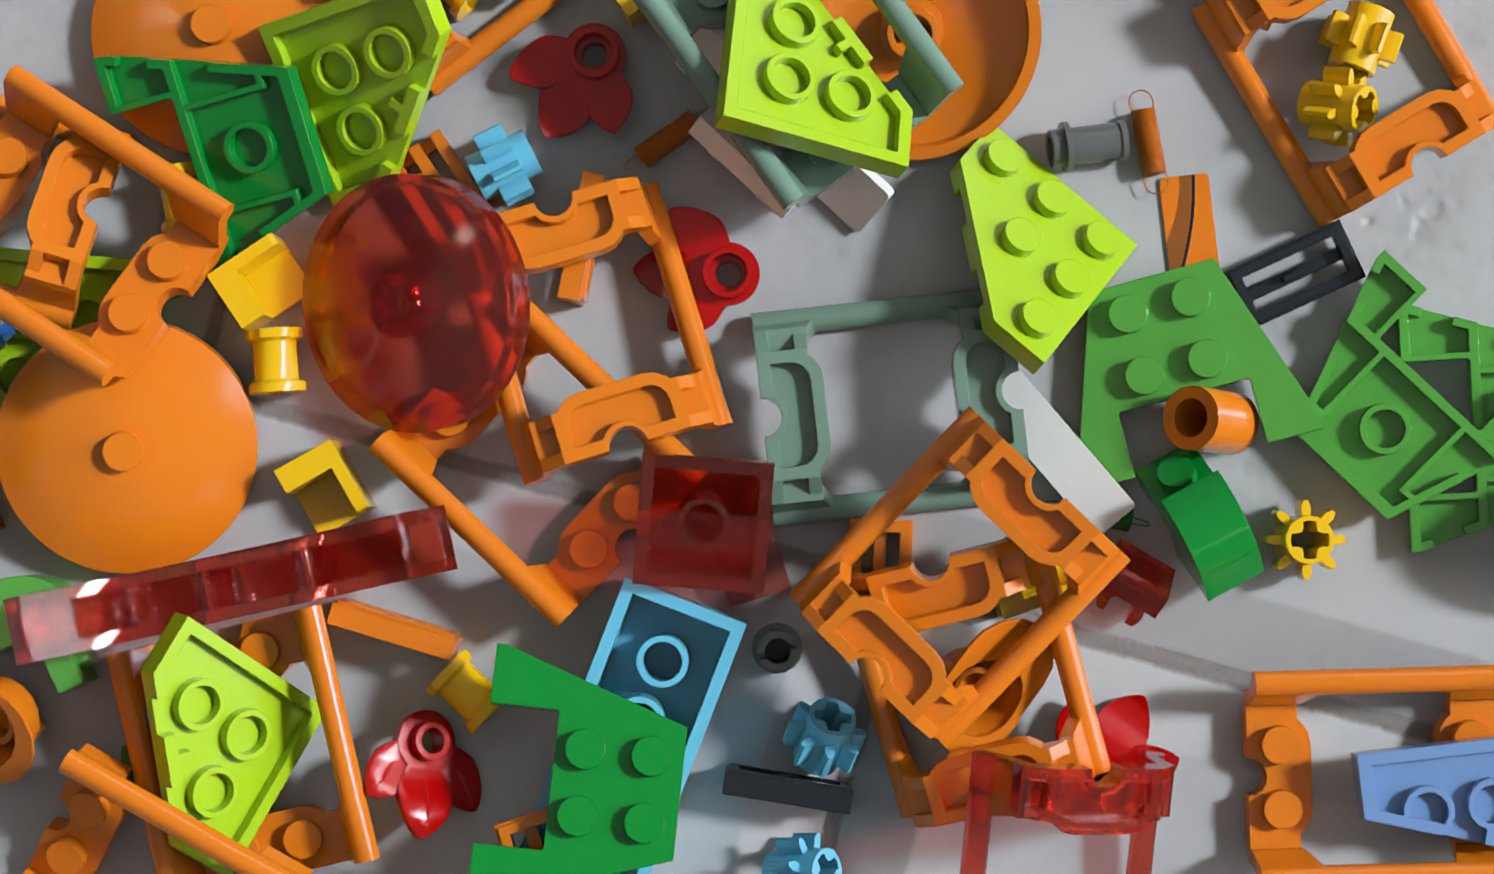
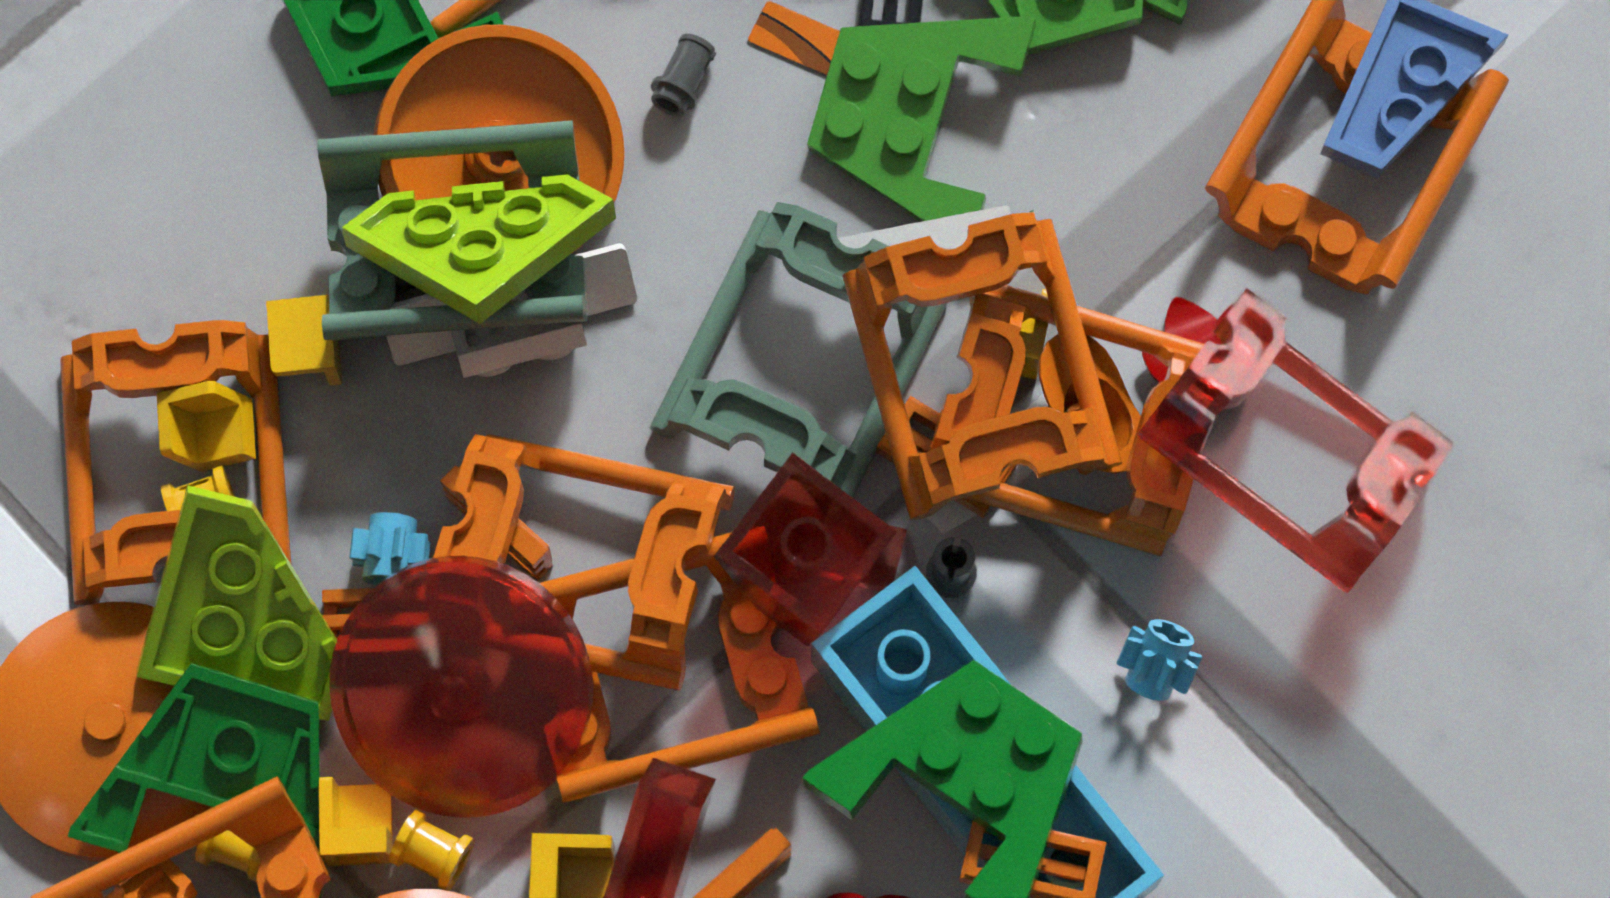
camera: 60 degrees left, 15 degrees down
(465, 690) = (828, 855): yellow bush -> none
(571, 88) = (357, 462): red plate -> none
(665, 140) = (456, 409): orange piece -> none
(703, 250) = (572, 430): red plate -> none
(787, 788) = (1078, 630): black tile -> none
(824, 736) = (1052, 572): medium azure gear -> none
(1033, 246) = (740, 156): lime plate -> none
(1142, 583) = (1080, 239): clear red tile -> none
(1148, 141) = (712, 29): orange piece -> none
(1203, 521) = (1055, 154): green brick -> none
(1210, 420) = (974, 105): orange brick -> none
(1314, 554) = (1104, 85): yellow gear -> none

